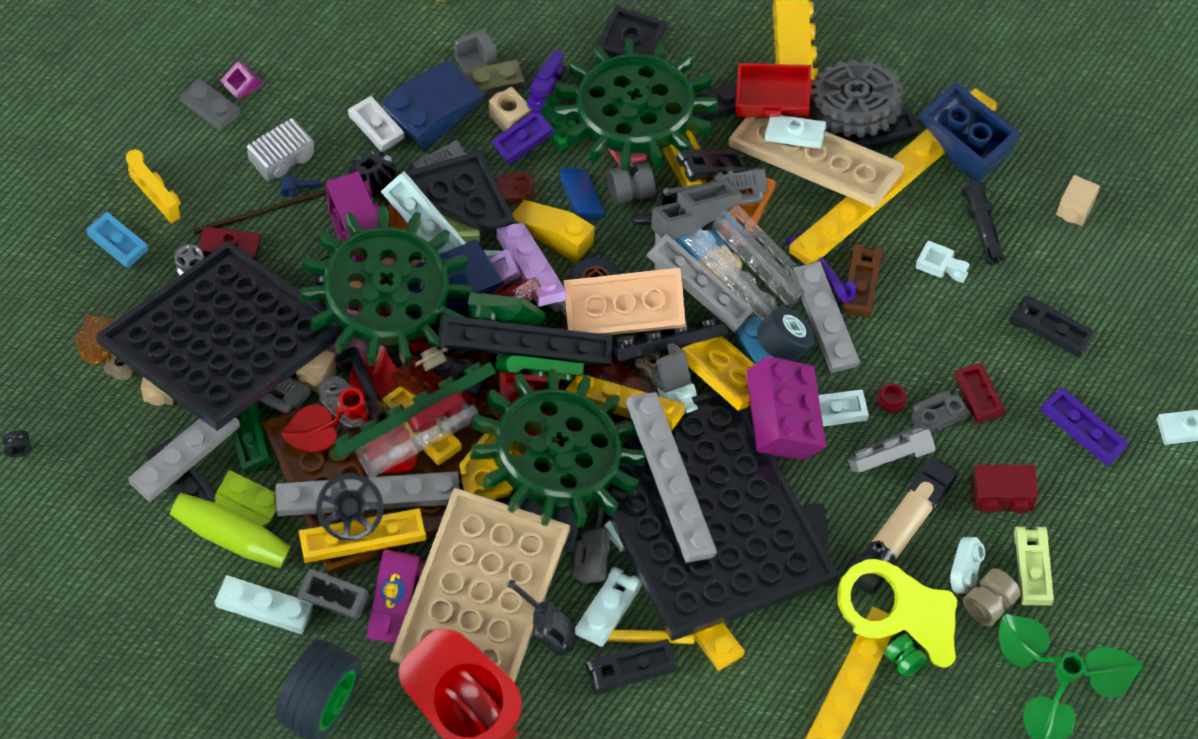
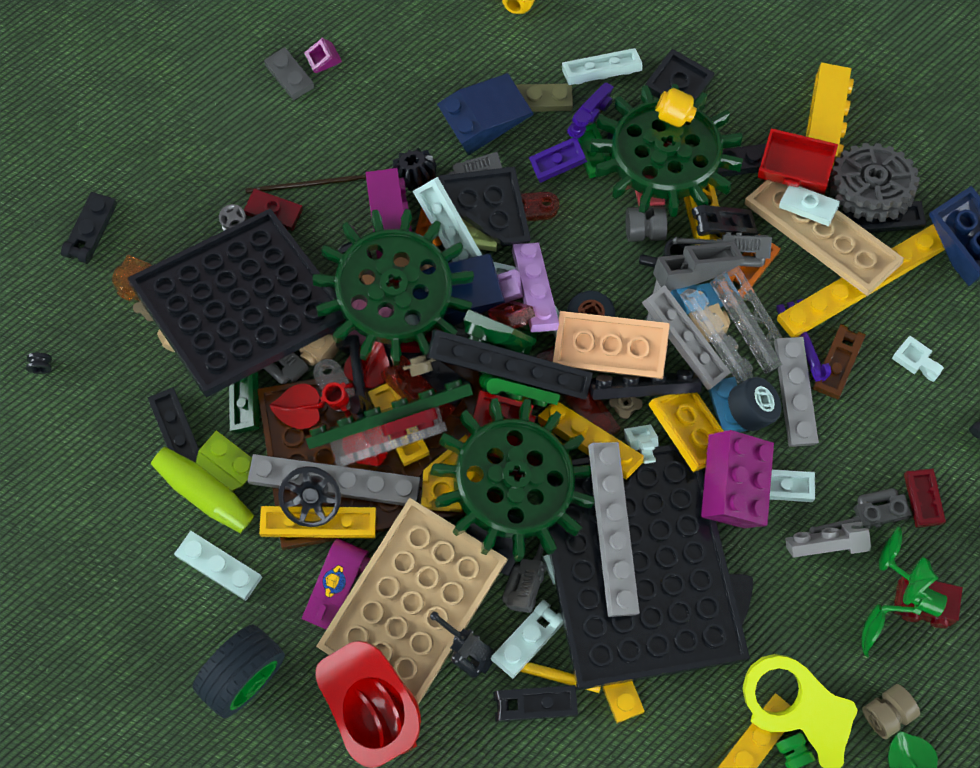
camera: 15 degrees right, 10 degrees up
(33, 299) = (89, 227): none -> black plate
(117, 240) = (175, 186): dark azure plate -> none
(153, 186) = (219, 140): yellow plate -> none
(179, 457) = (171, 411): light grey plate -> none
(280, 150) = (339, 129): light grey brick -> none
(291, 184) = (341, 163): dark blue hand -> none
(334, 594) = (279, 574): dark grey brick -> none
(376, 124) = (430, 120): white plate -> none
(475, 50) = (535, 68): dark grey panel -> none
(505, 101) = (551, 121): tan brick -> none
(546, 36) = (602, 66): none -> light aqua plate
(556, 229) = (566, 254): yellow slope -> none
(581, 193) = (599, 224): blue slope -> none
(635, 59) = (676, 107): none -> yellow head
(671, 370) = (640, 419): dark grey panel -> none
(892, 397) = (840, 485): dark red plate -> none
(921, 500) = (826, 612): piece -> none
(966, 564) = (871, 677): light aqua plate -> none
(980, 211) = (966, 316): black pin -> none
(997, 479) = (915, 593): none -> green plant
(1034, 566) = (939, 686): yellowish green plate -> none

